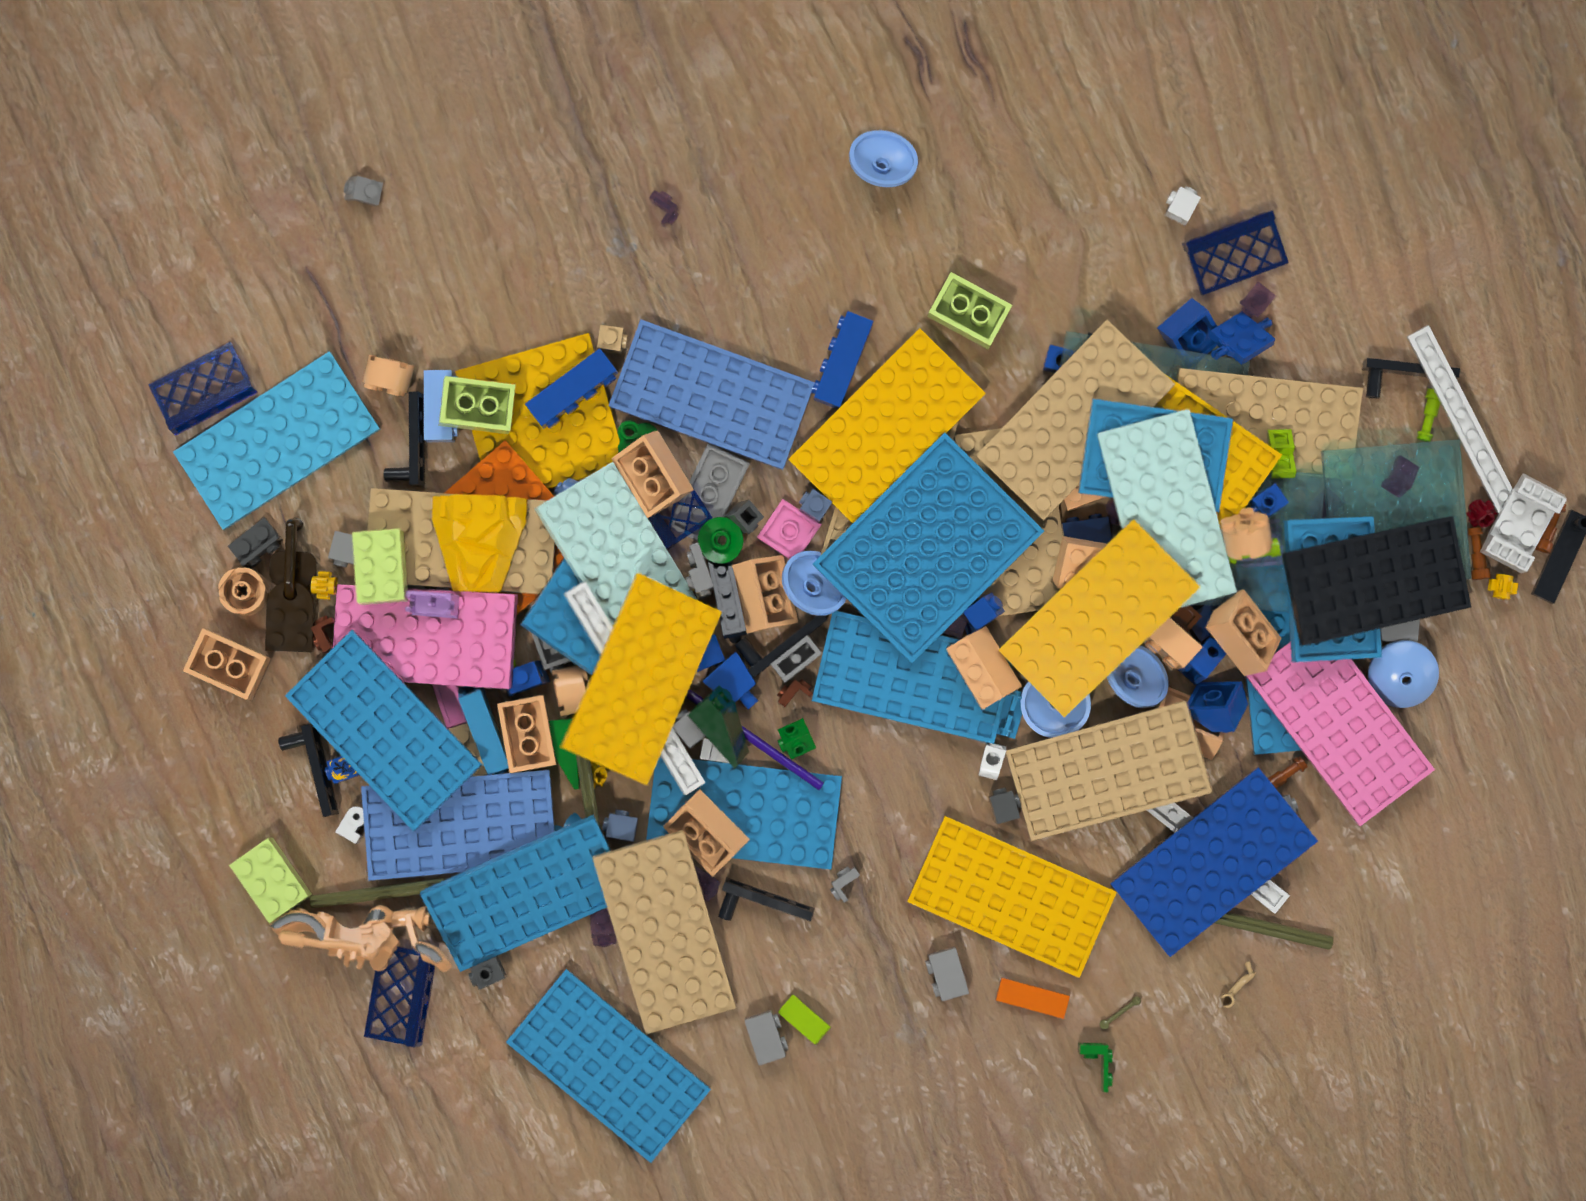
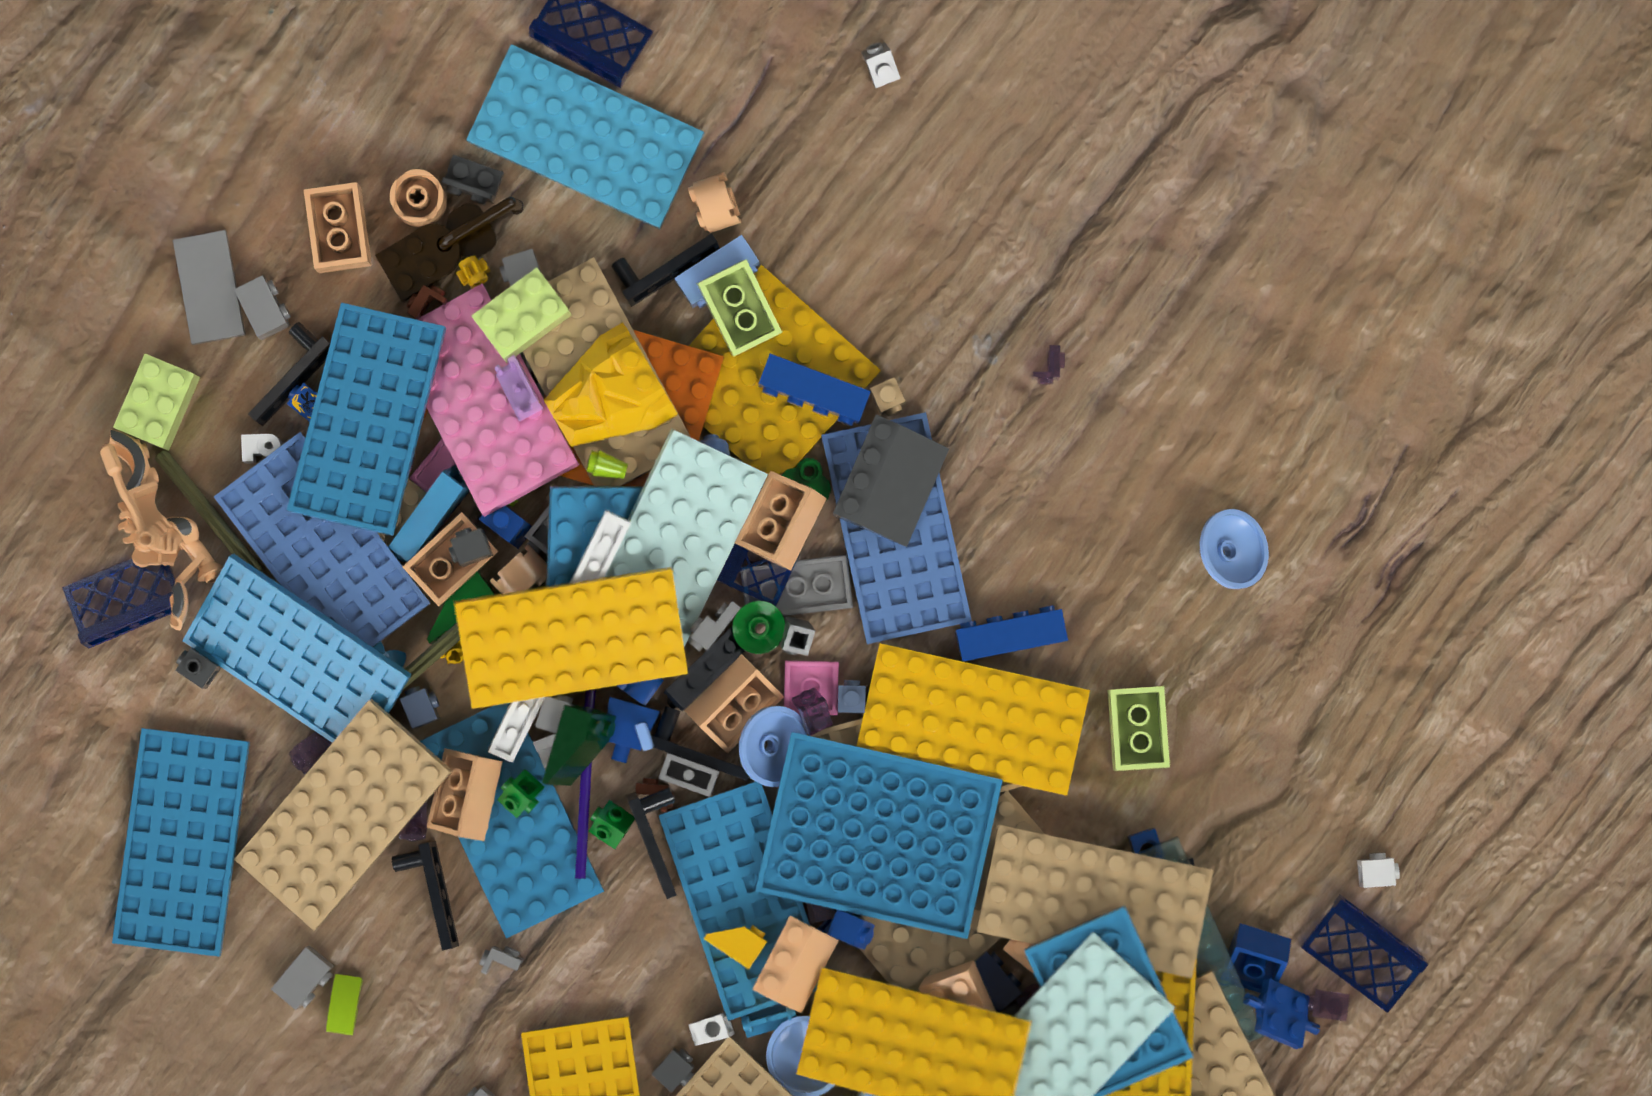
camera: 55 degrees right, 0 degrees up
(210, 788) = (209, 287): none -> light grey tile
(250, 757) = (262, 307): none -> light grey brick
(527, 713) = (470, 547): none -> dark grey brick
(530, 575) = (605, 465): none -> lime cone
(674, 375) = (890, 481): none -> dark grey slope
(732, 790) = (520, 793): none -> green brick
(747, 672) = (644, 736): none -> light blue tile
(798, 710) = (641, 807): none -> black piece
(807, 539) = (813, 711): none -> clear purple bracket
(943, 698) = (739, 943): none -> yellow slope

